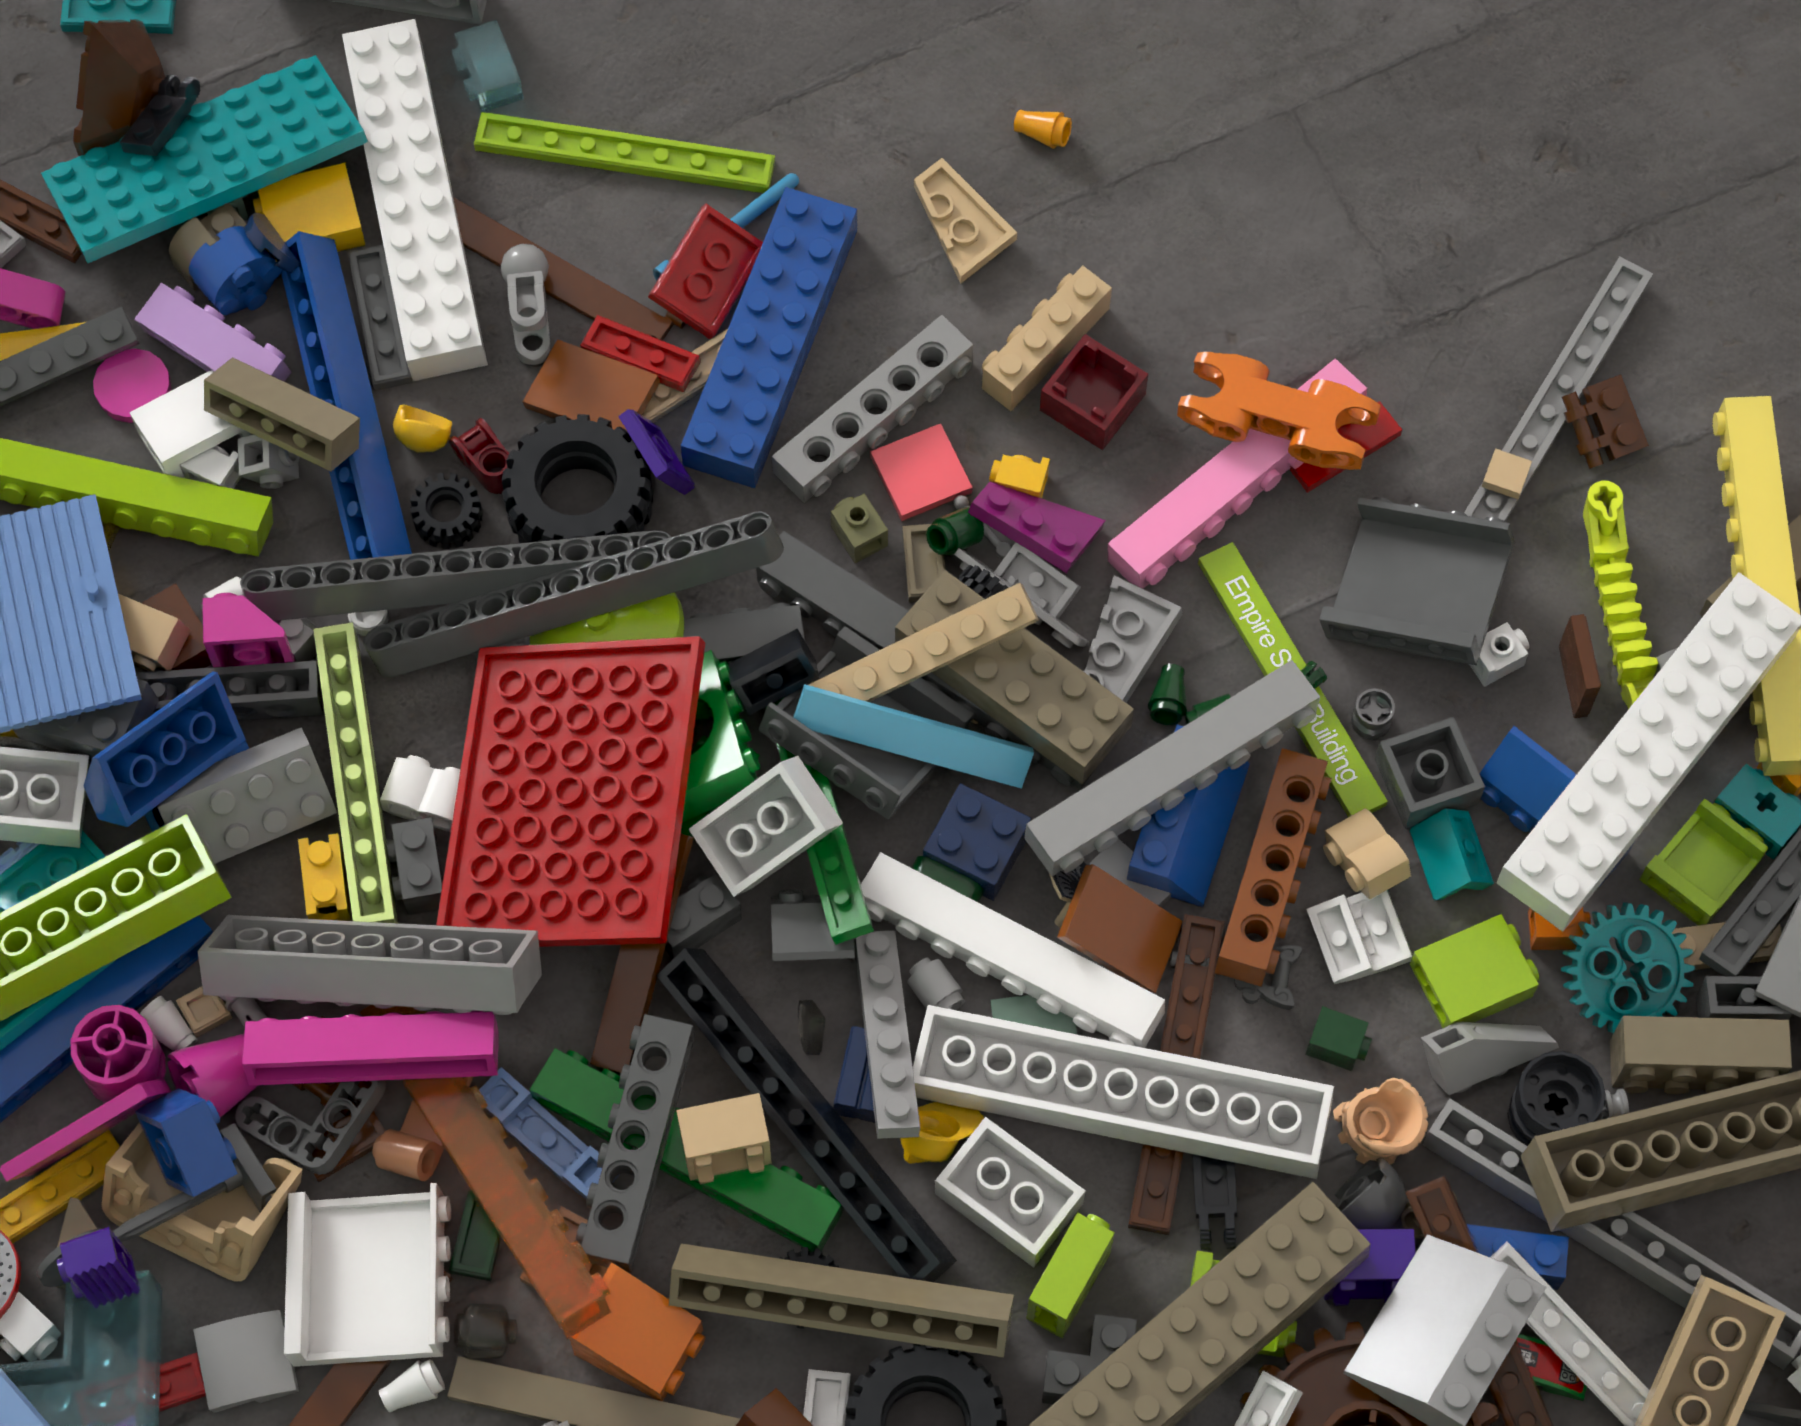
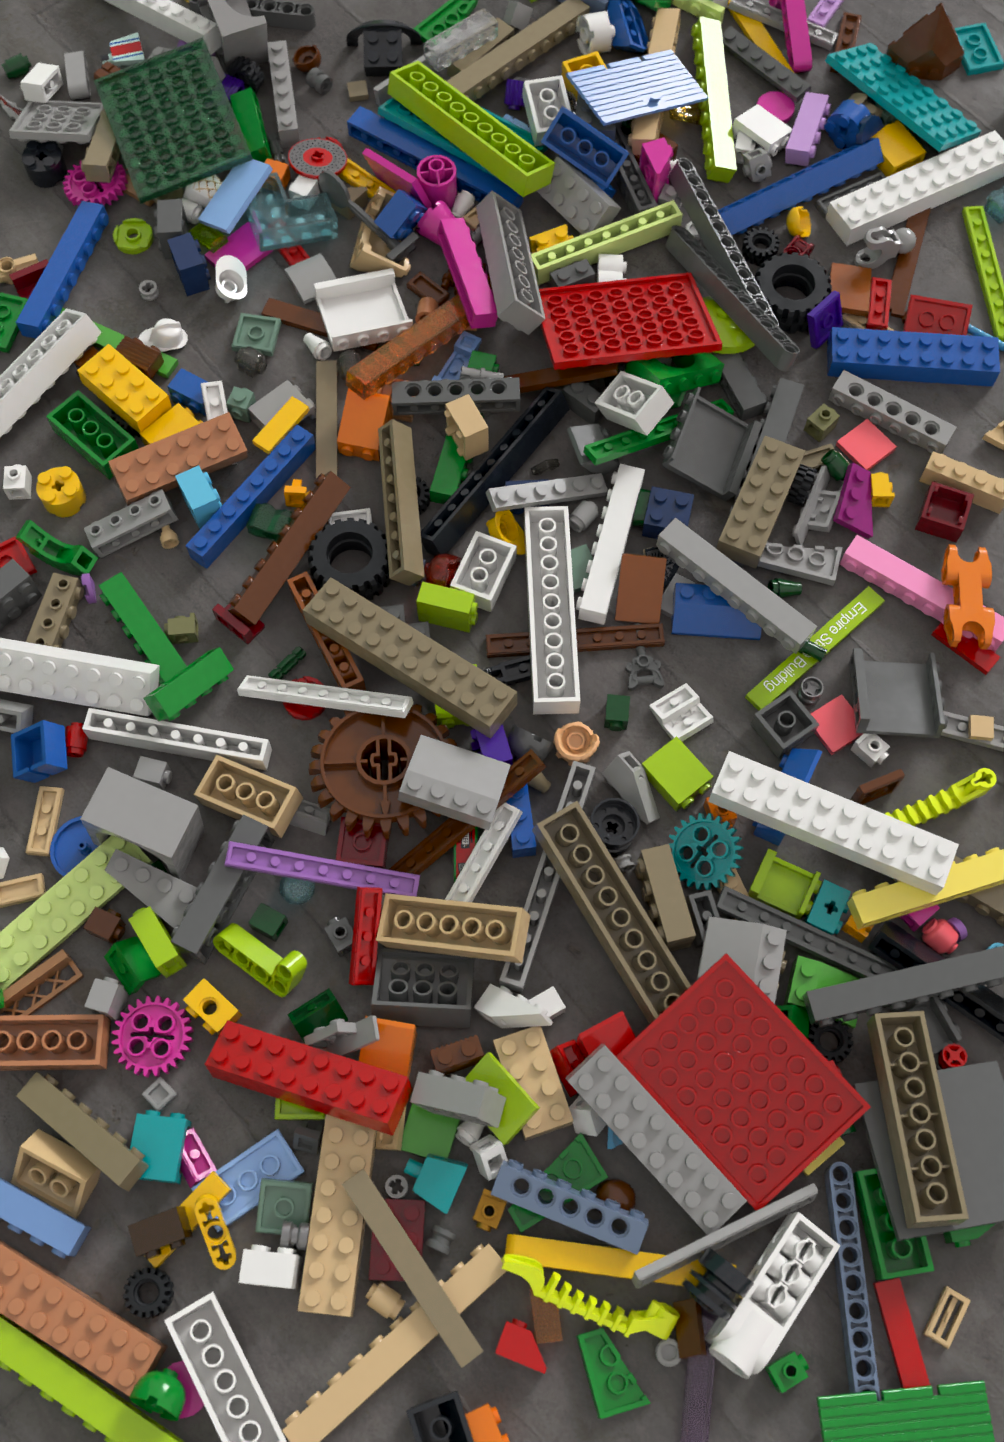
camera: 75 degrees right, 0 degrees up
(98, 1268) = (328, 192): dark purple brick -> none
(161, 116) = (918, 75): black hinge -> none
(281, 414) = (776, 152): dark tan brick -> none
(312, 1137) = (422, 275): dark grey beam -> none
(602, 1085) = (481, 373): none -> light grey pin
(773, 671) = (723, 395): black brick -> none
(913, 736) = (710, 464): medium azure tile -> none
(933, 646) = (754, 449): tan plate -> none
(998, 1265) = (441, 569): none -> clear red cylinder
(1240, 956) = (712, 650): dark orange brick -> none
(1366, 854) = (725, 702): tan brick -> none
(1437, 690) = (836, 724): none -> coral tile
(1451, 853) = (749, 744): teal panel -> none

